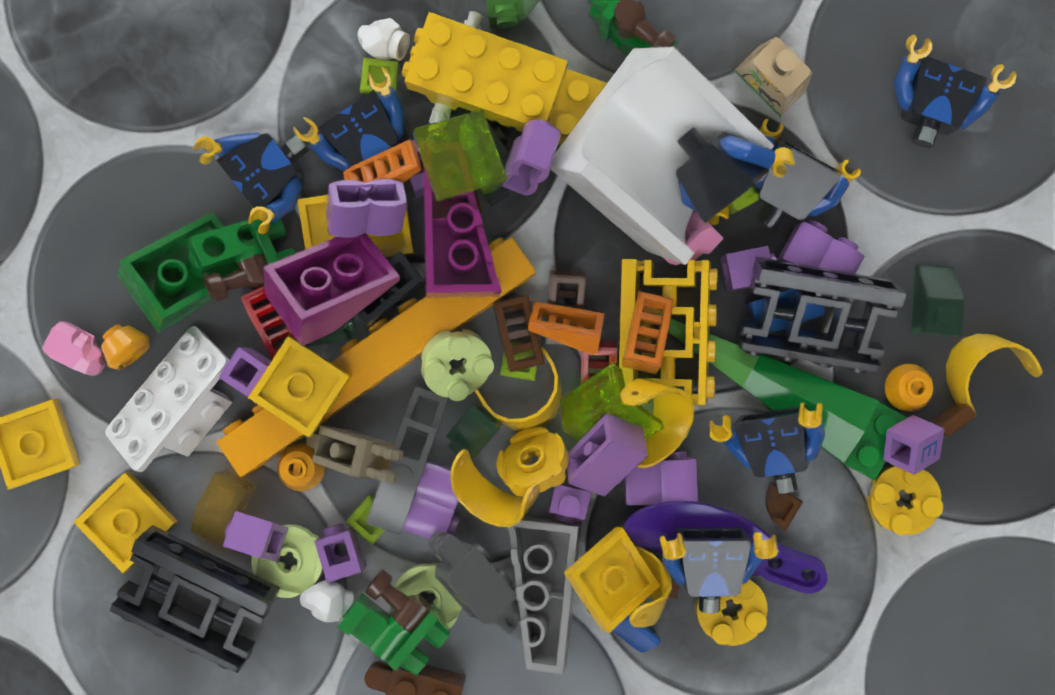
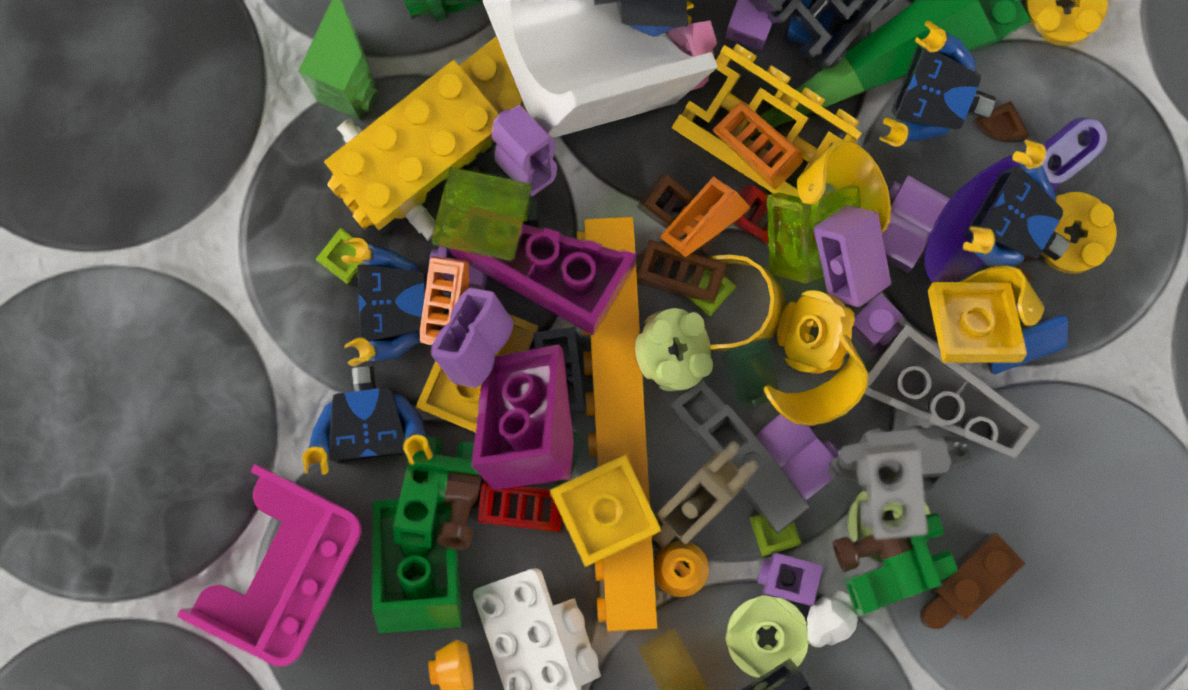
camera: 60 degrees left, 5 degrees down
(87, 193) = (293, 579): none -> dark pink windscreen
(245, 370) = (557, 557): medium lavender brick -> none
(255, 536) = (724, 648): medium lavender brick -> none
(384, 39) = (312, 227): white rock -> none
(443, 599) = (904, 489): none -> light grey brick

